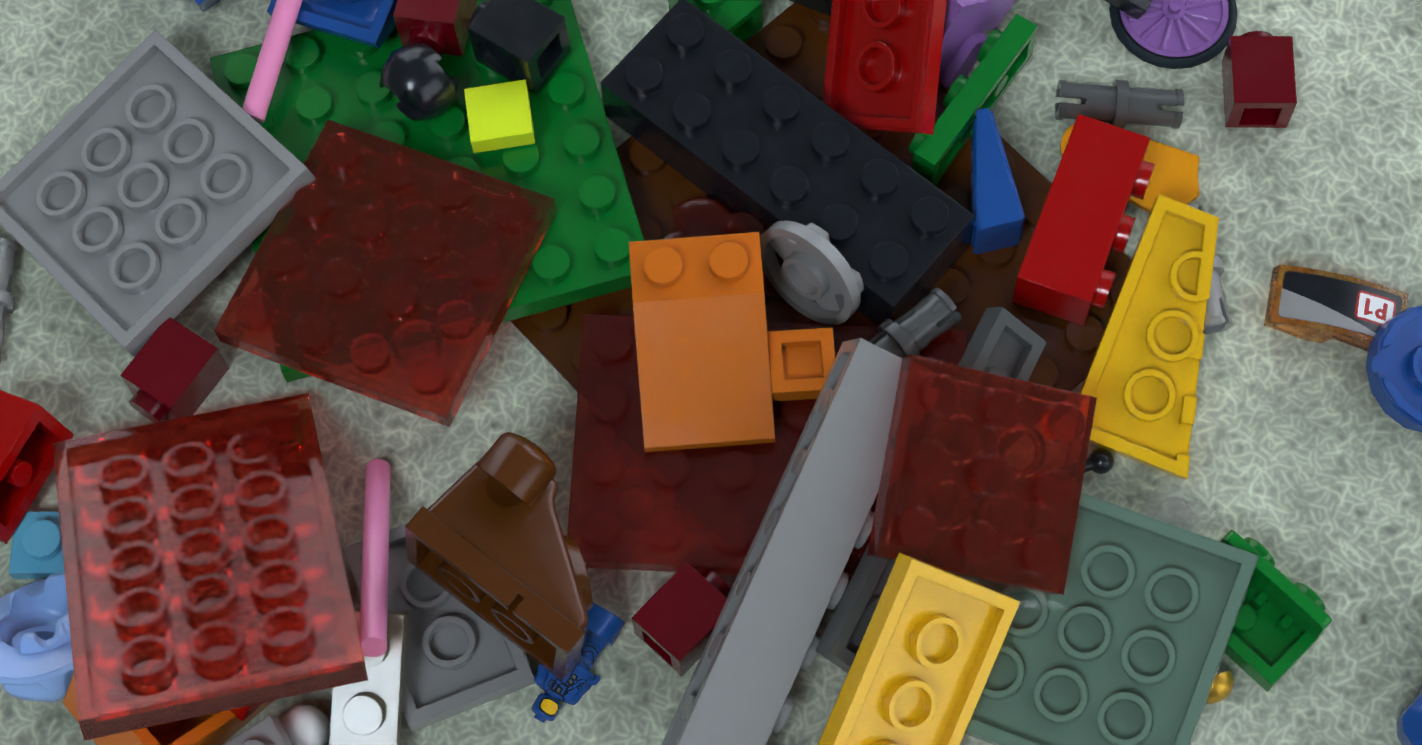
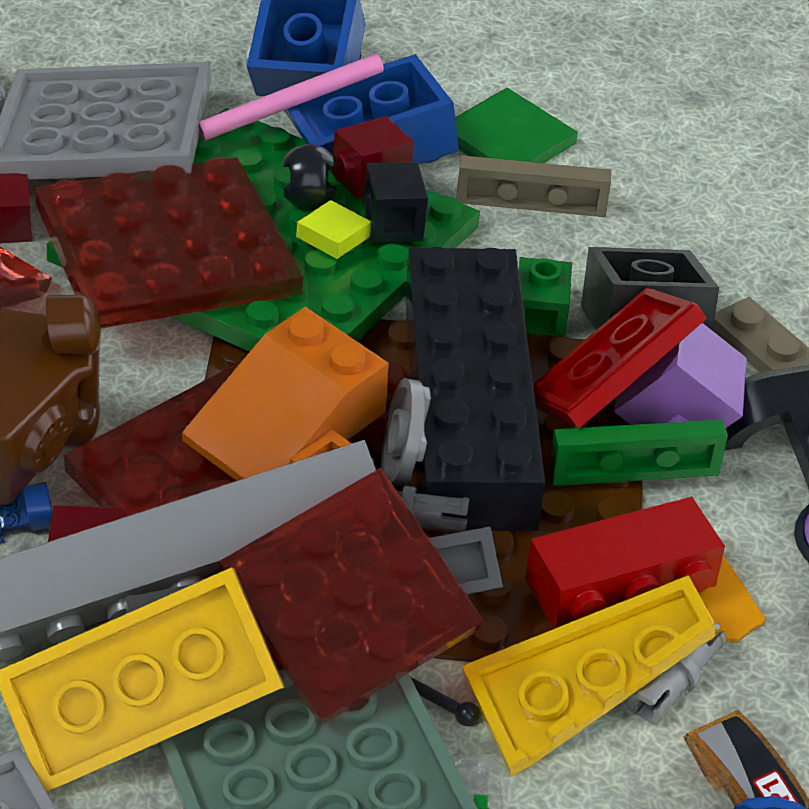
camera: 40 degrees right, 25 degrees down
(993, 191) = (588, 493): blue slope -> none
(1119, 103) = (747, 547): dark grey pin -> none

